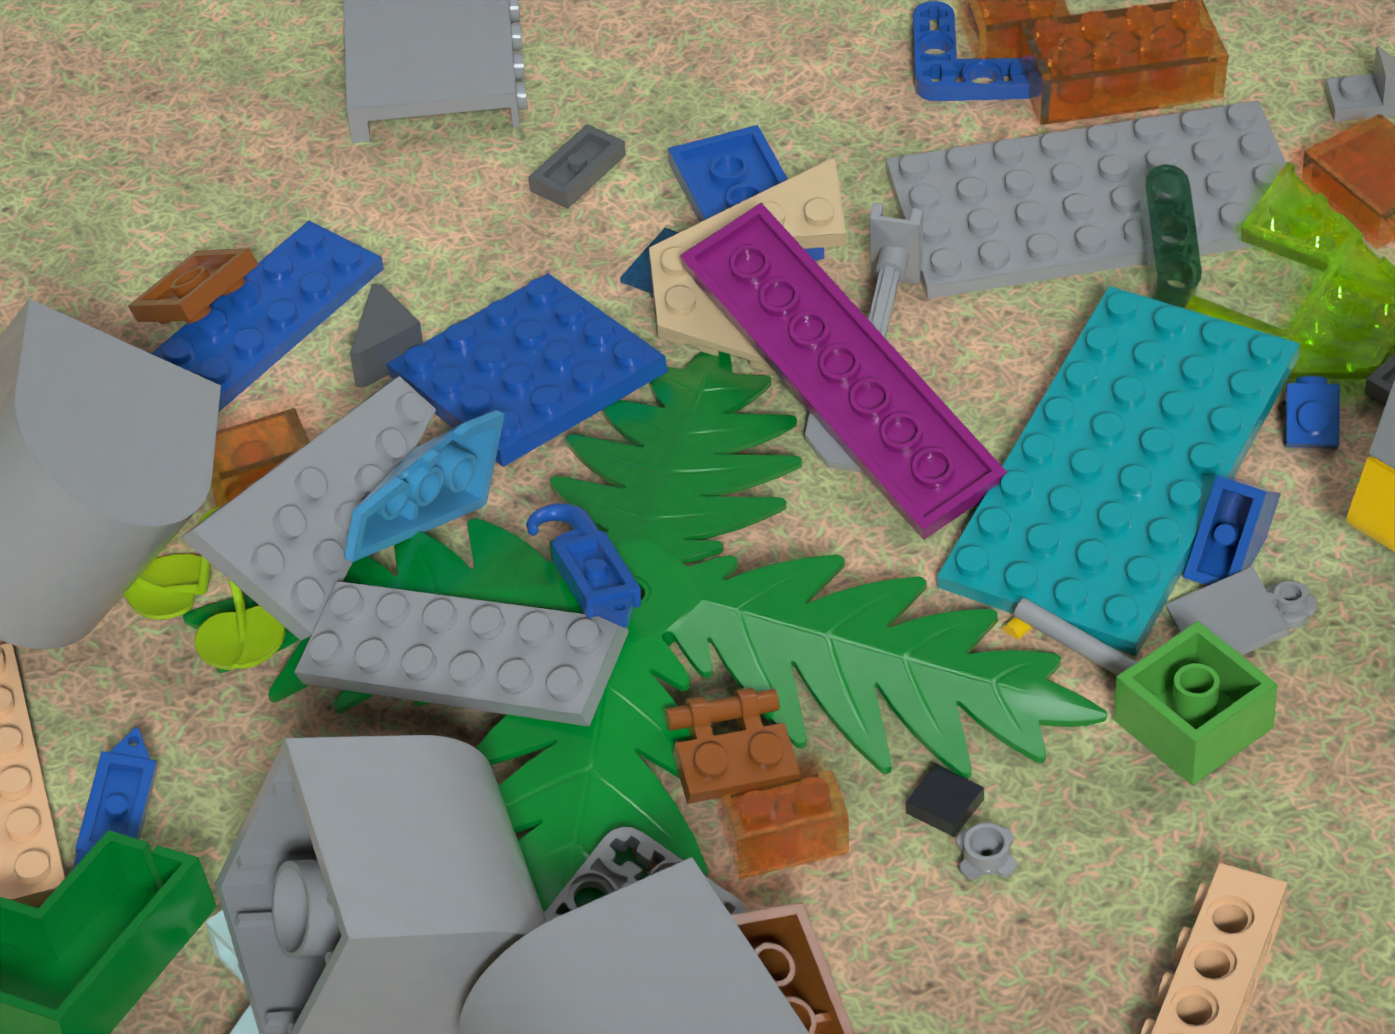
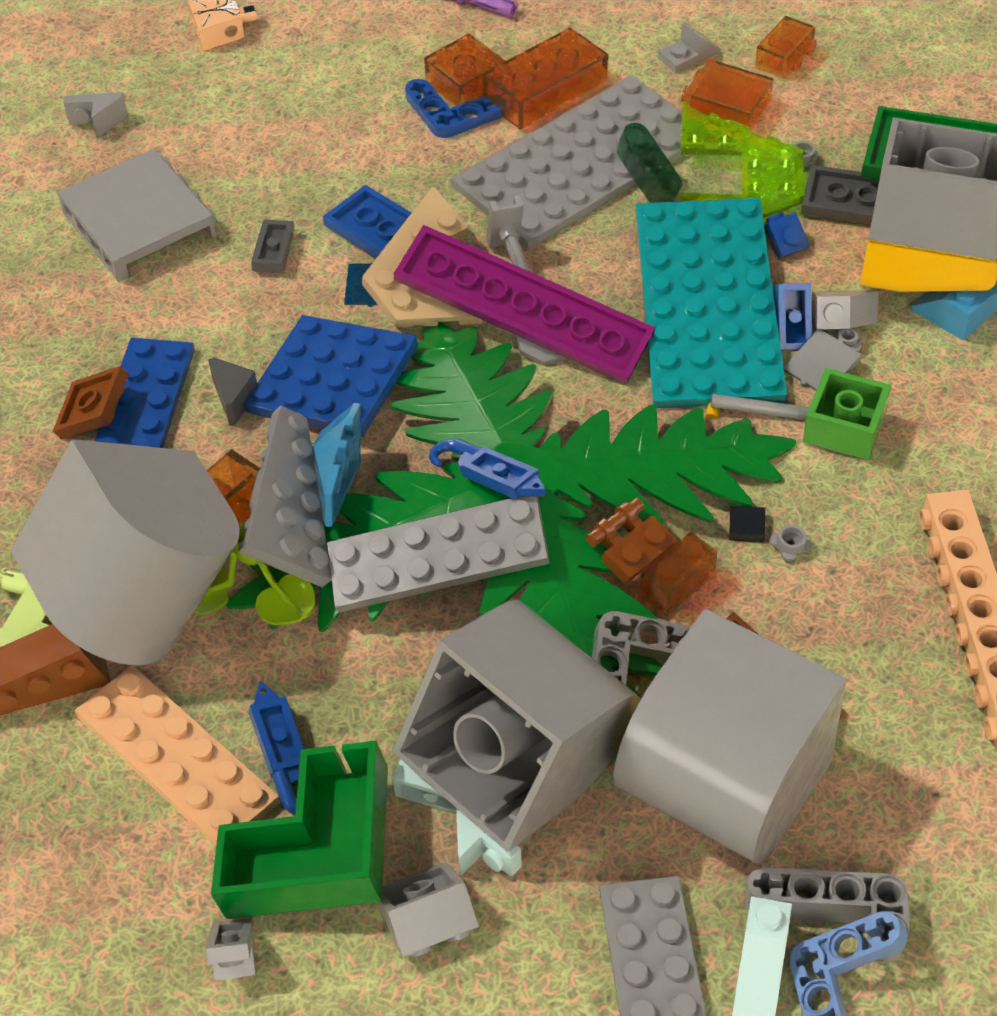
camera: 30 degrees left, 5 degrees up
(1312, 553) = (844, 309): none -> light grey slope

